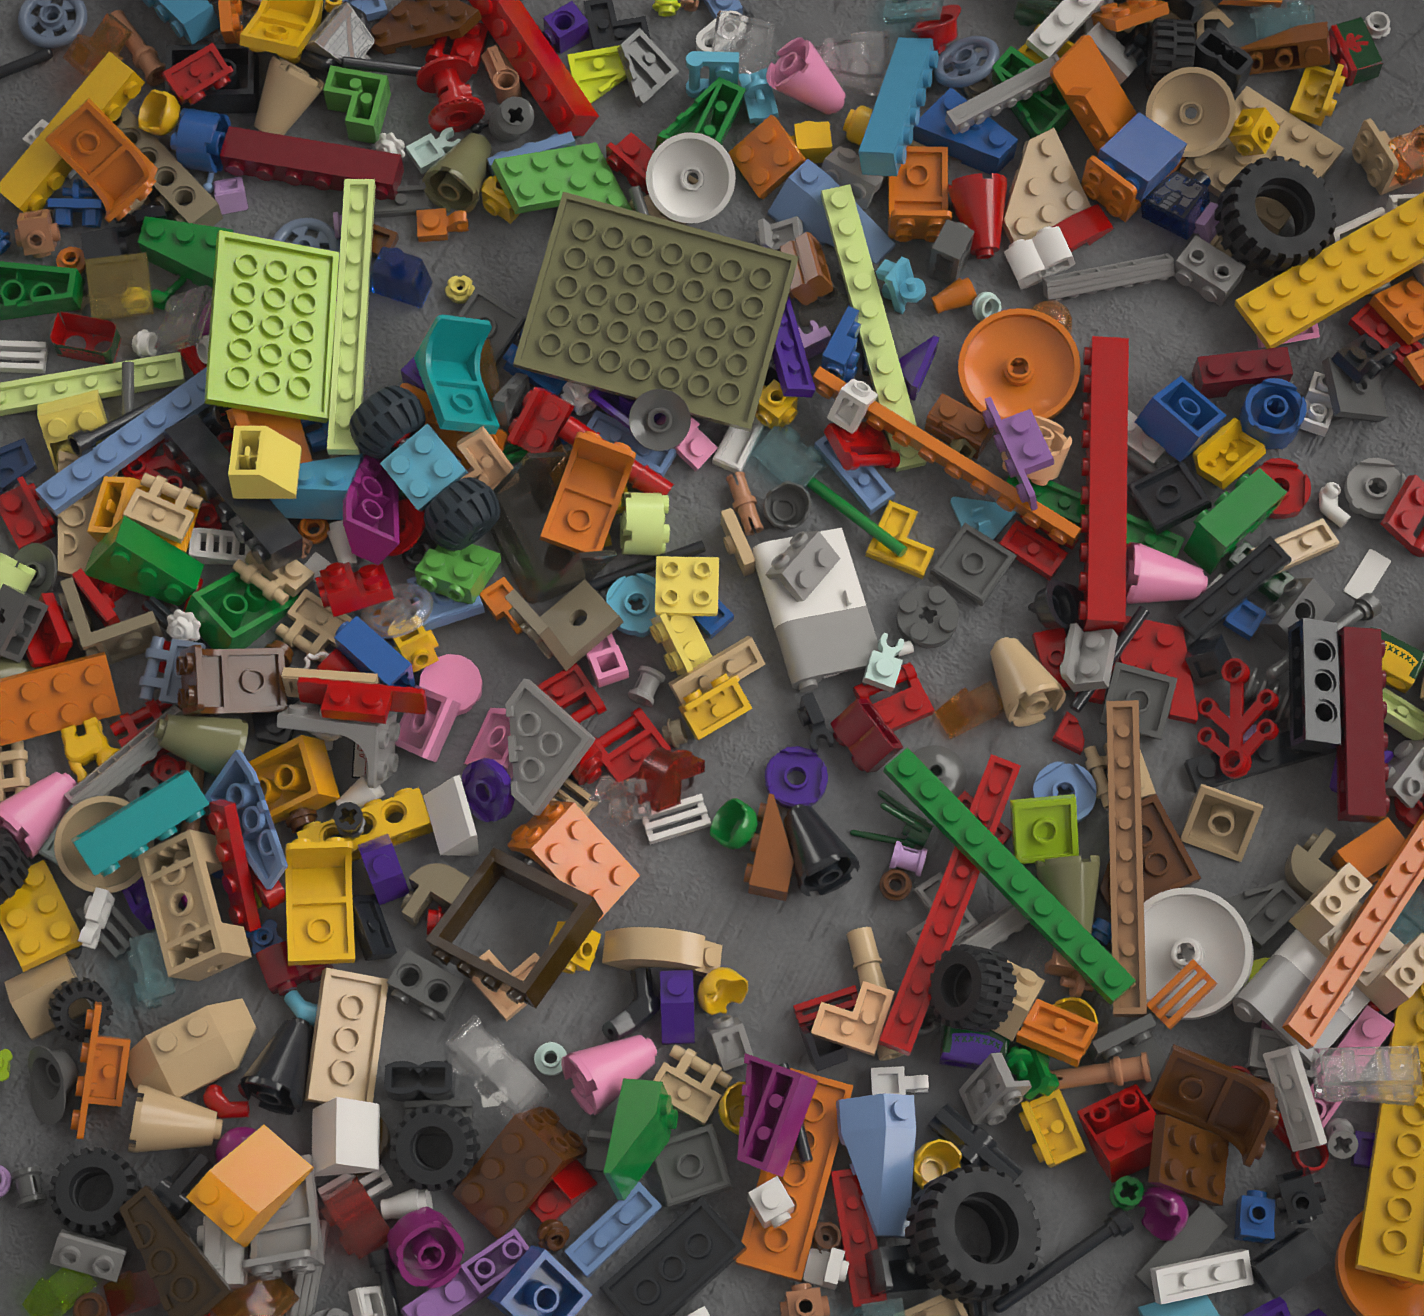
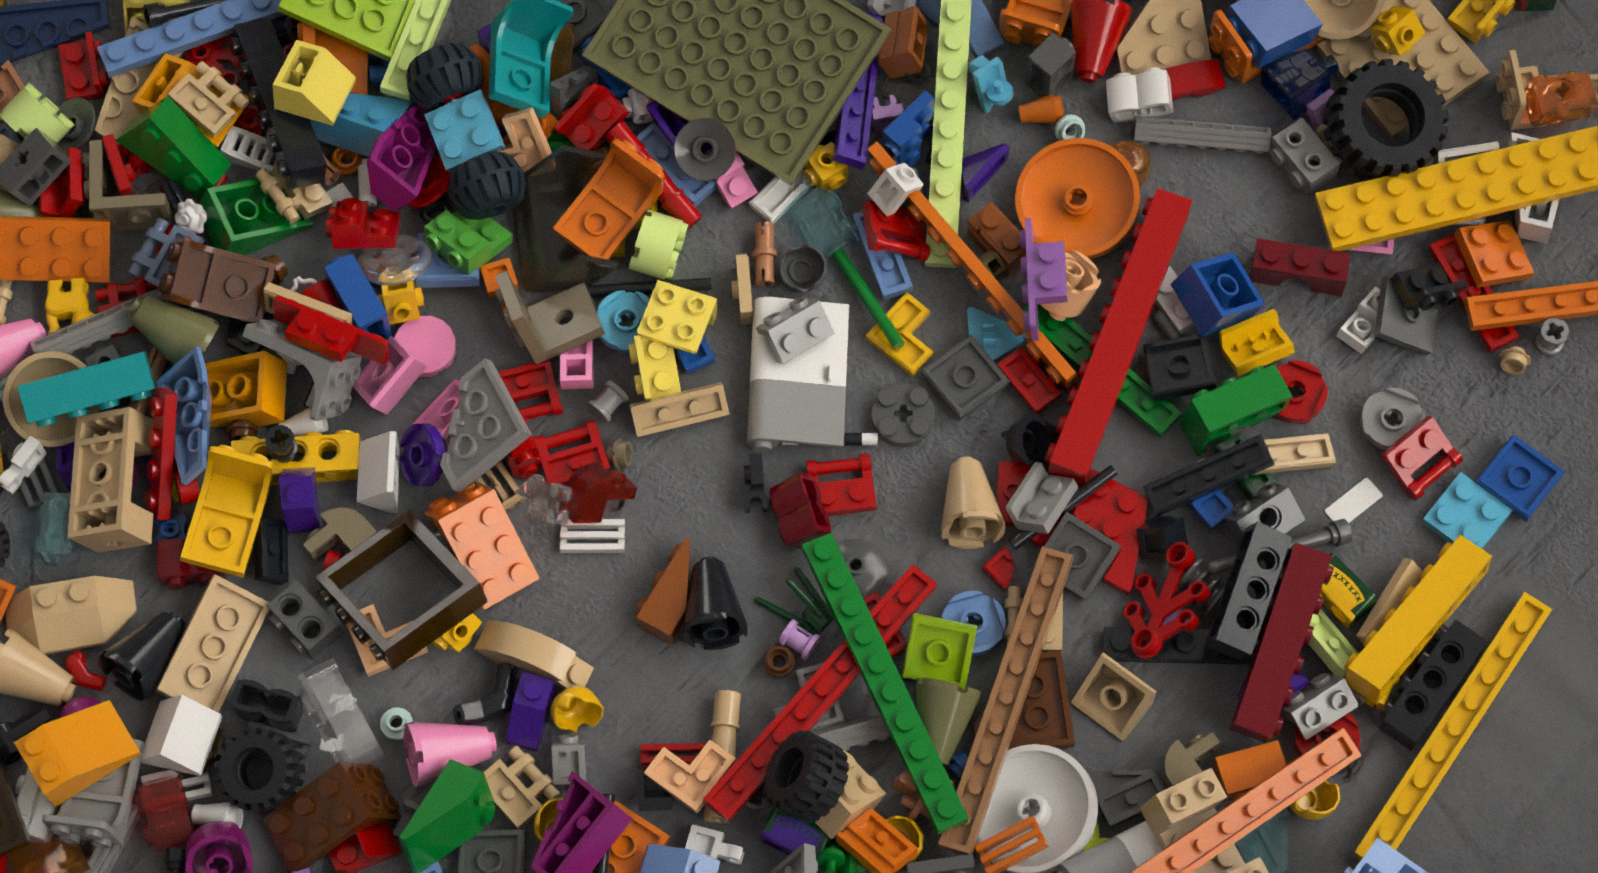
camera: 20 degrees right, 0 degrees up
(166, 763) = (133, 341): red plate -> none
(300, 1007) = (181, 604): medium azure arm -> none
(311, 615) = (314, 241): tan plate -> none
(714, 707) = (665, 440): yellow bracket -> none
(734, 824) = (644, 557): green hair -> none
(799, 760) = (724, 513): dark purple tile -> none
(883, 666) = (840, 449): light aqua plate -> none
(969, 709) = (910, 516): clear orange slope -> none
(1160, 577) = (1140, 443): bright pink cone -> none
(1273, 413) = (1315, 299): blue brick -> none
(1329, 504) = (1340, 423): white arm -> none

